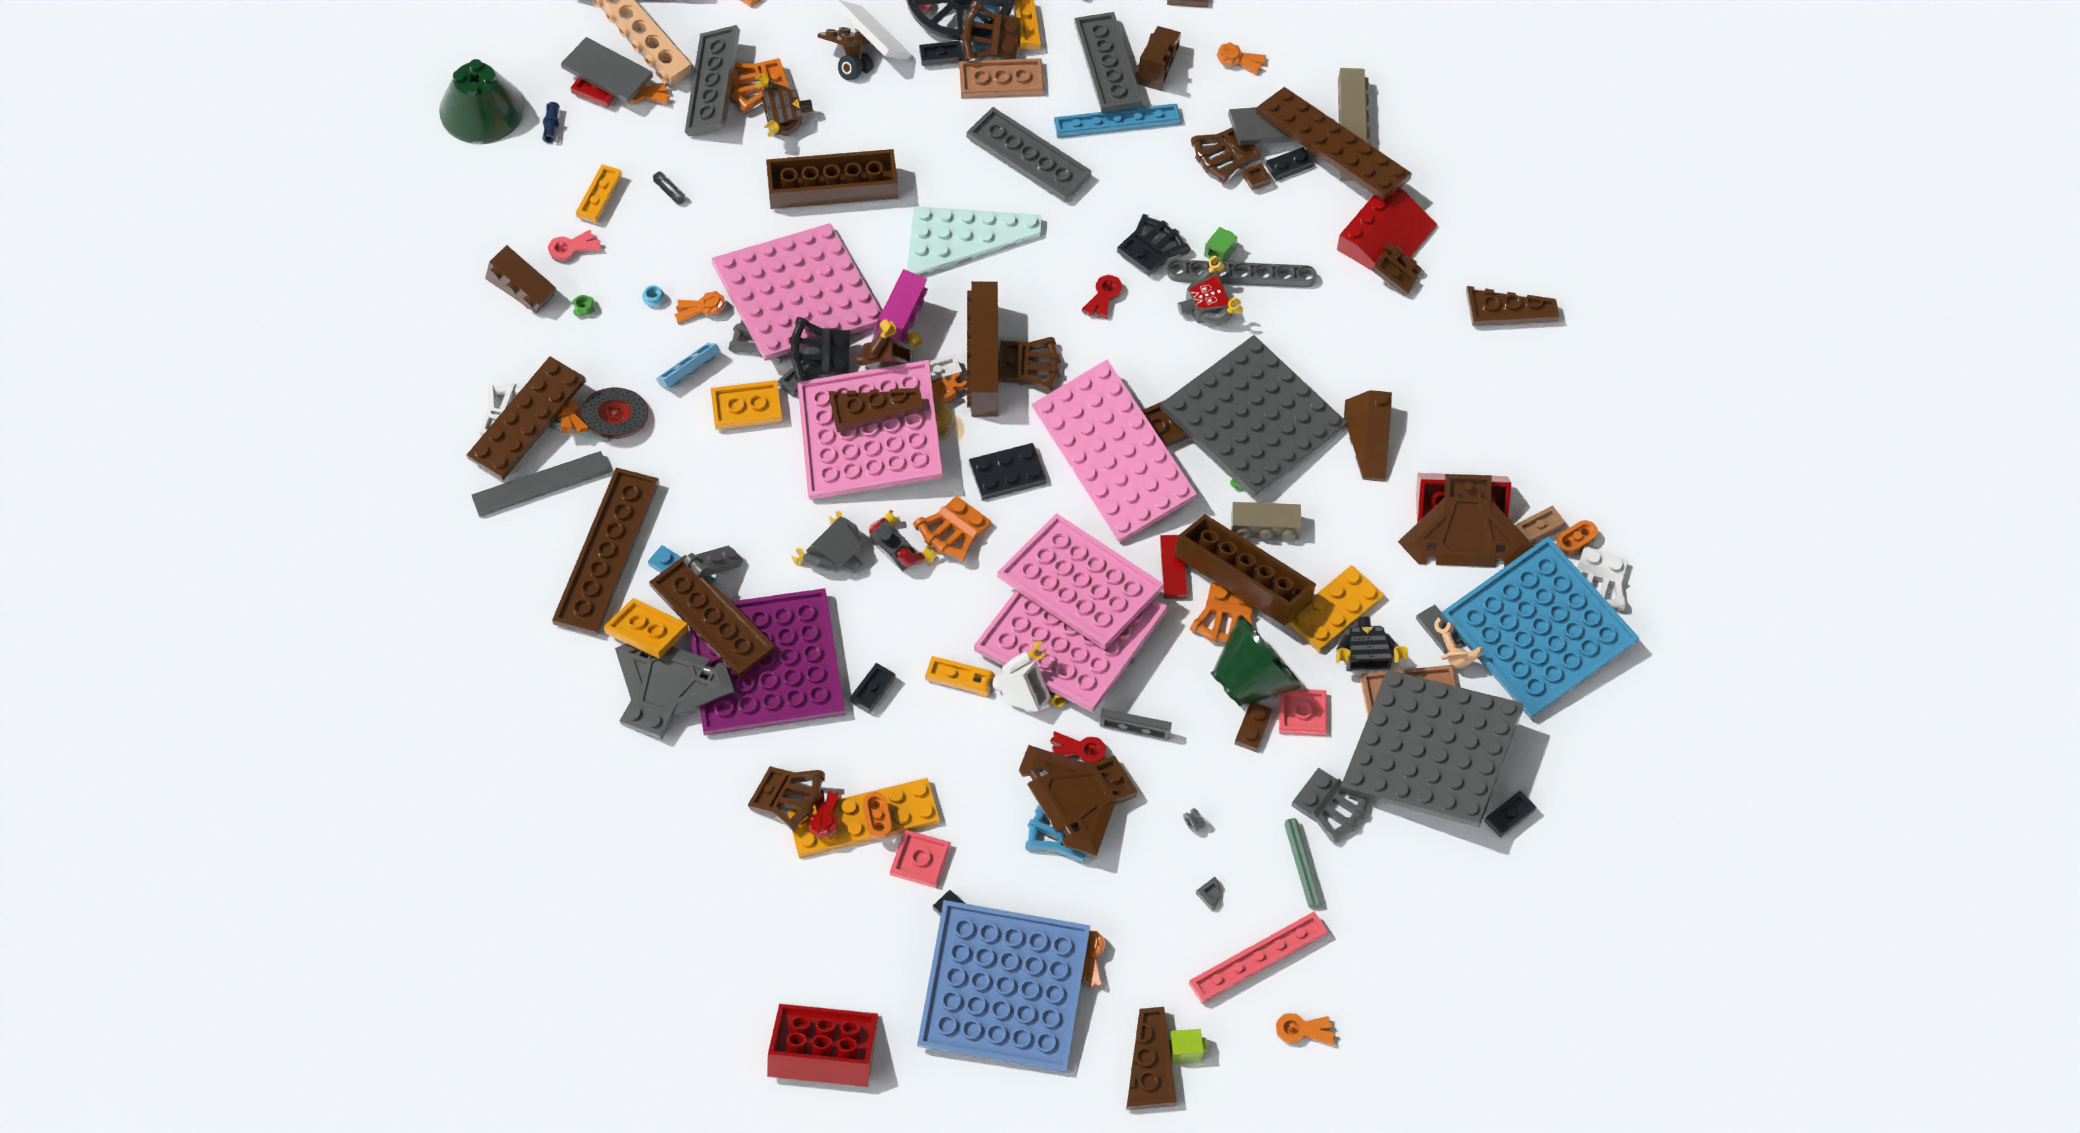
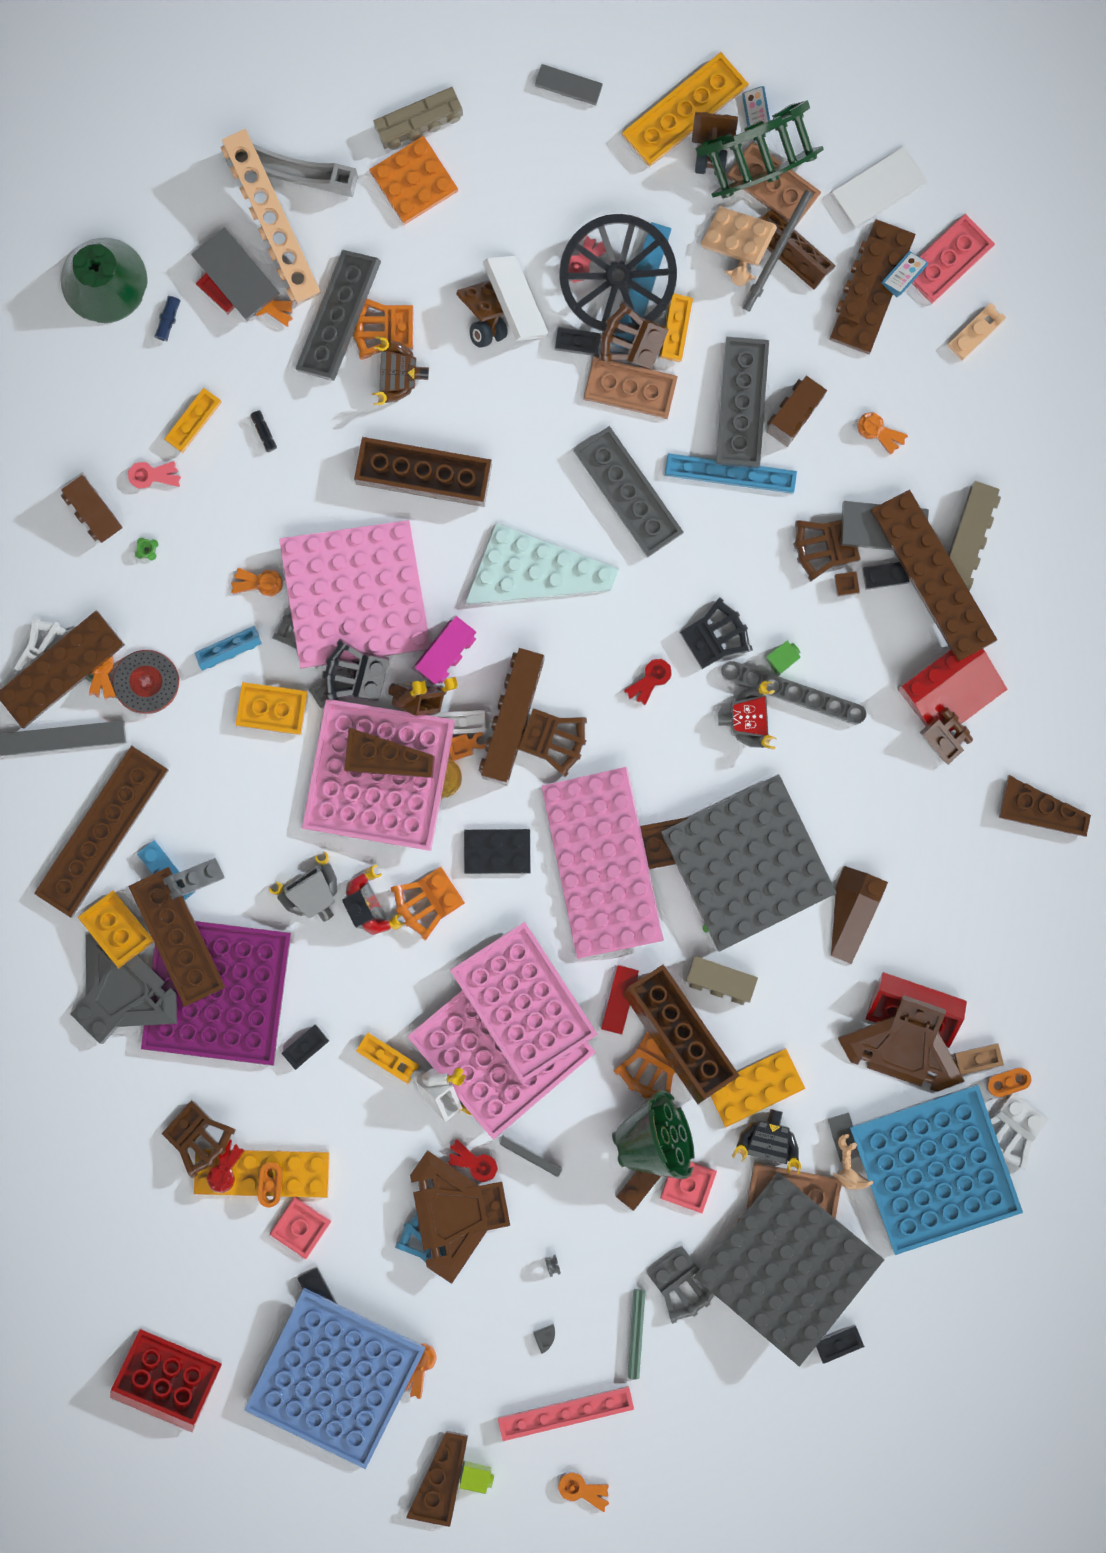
camera: 20 degrees right, 25 degrees up
(651, 291) = (211, 552): medium azure plate -> none

